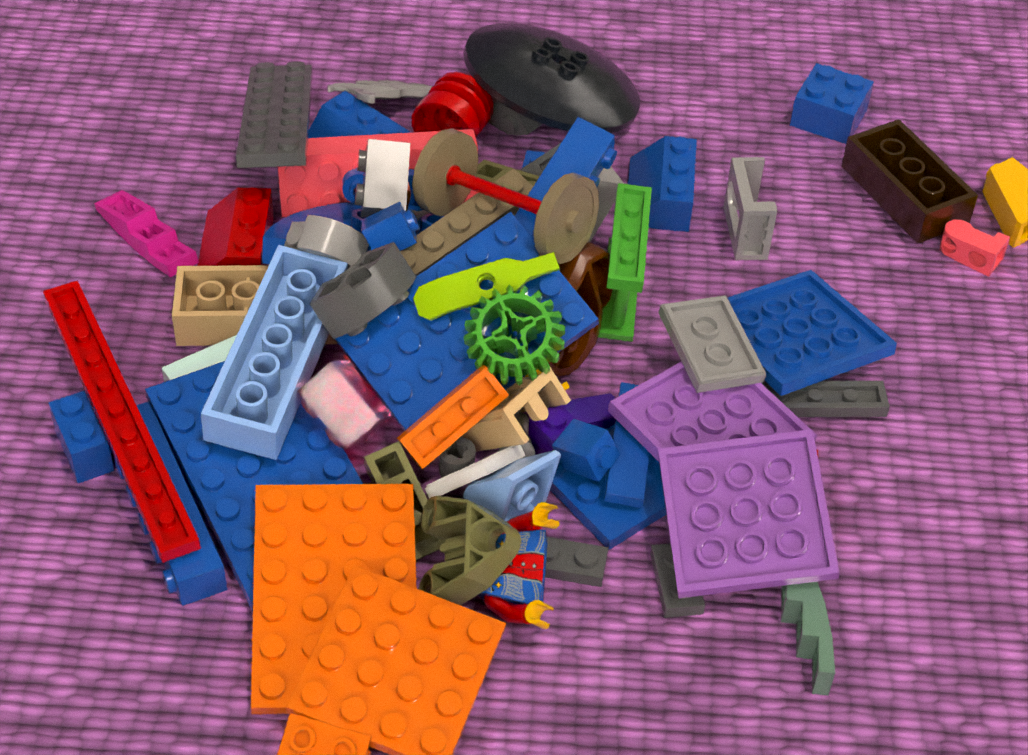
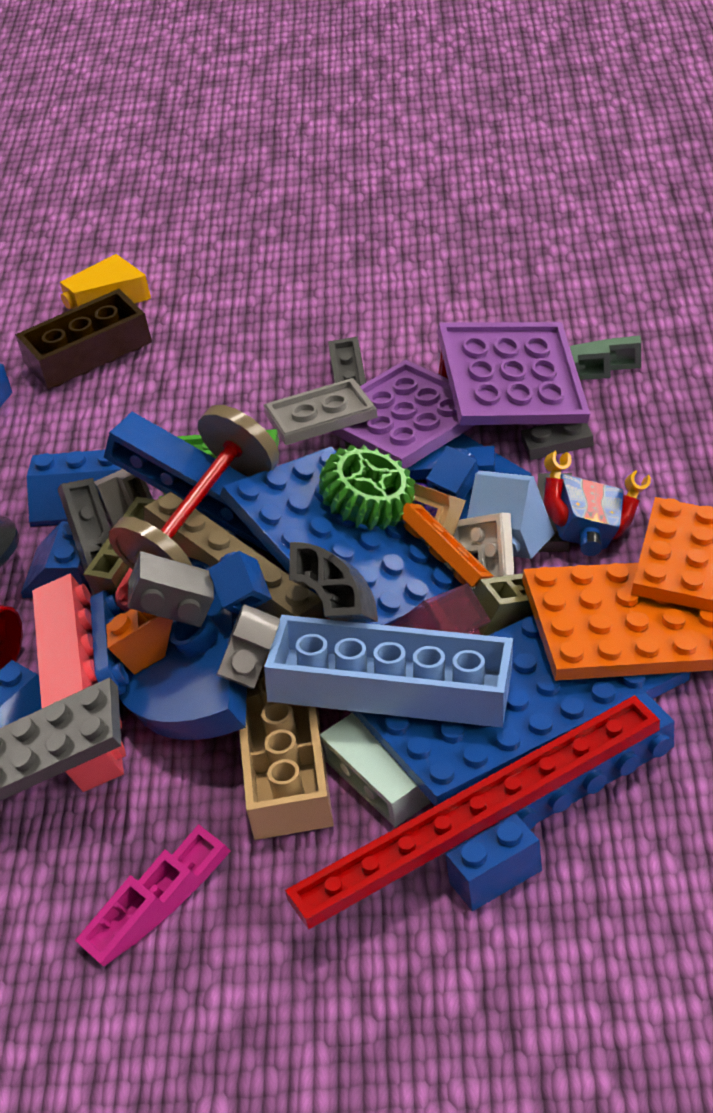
camera: 85 degrees left, 5 degrees down
(237, 228) = (164, 798): red slope -> none
(463, 288) = (319, 520): lime piece -> none
(468, 549) = (562, 523): olive connector -> none
(754, 228) = (99, 411): light grey panel -> none
(807, 331) = (274, 372): blue plate -> none
(973, 246) = (160, 309): coral leg -> none

